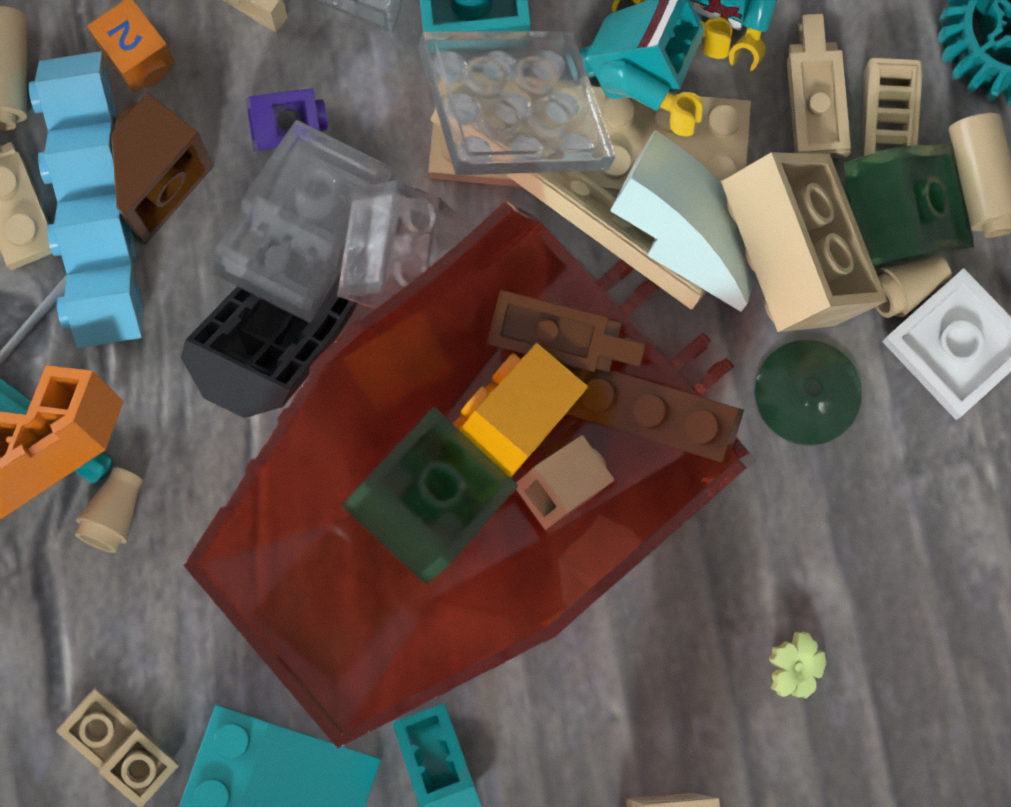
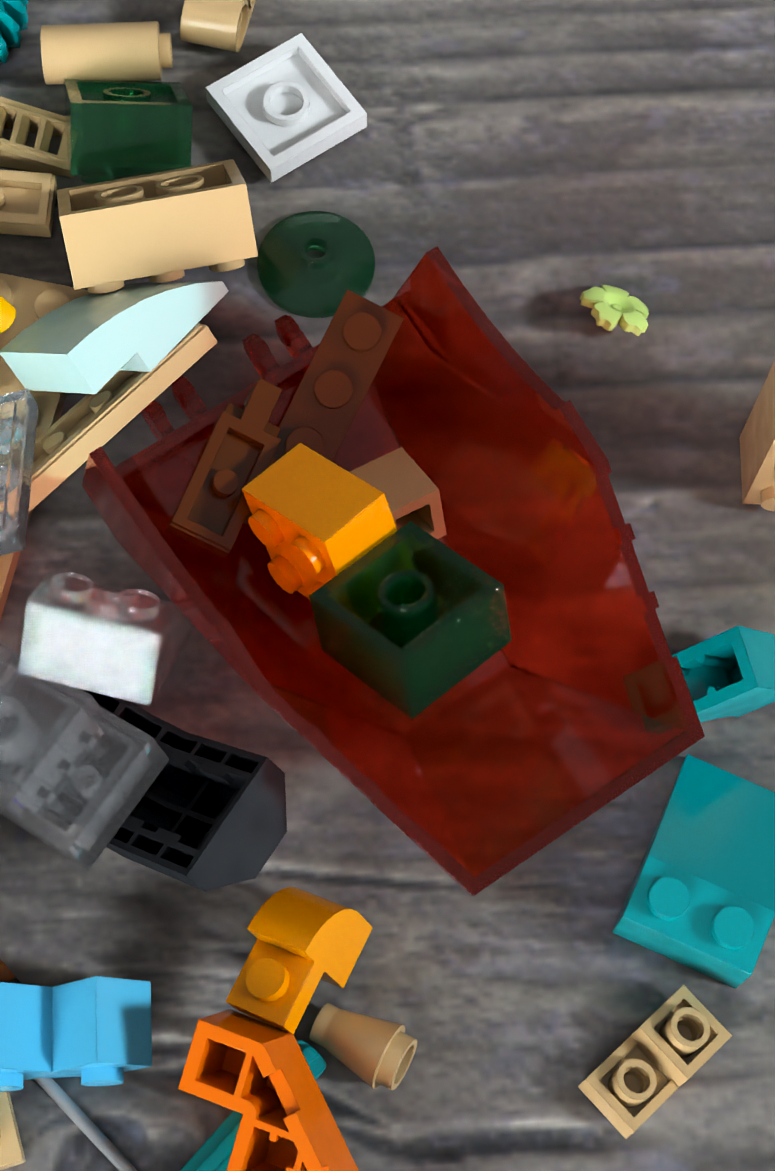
camera: 85 degrees left, 10 degrees down
(175, 442) = (295, 947): none -> light orange brick
(911, 284) = (214, 139): tan cone -> none

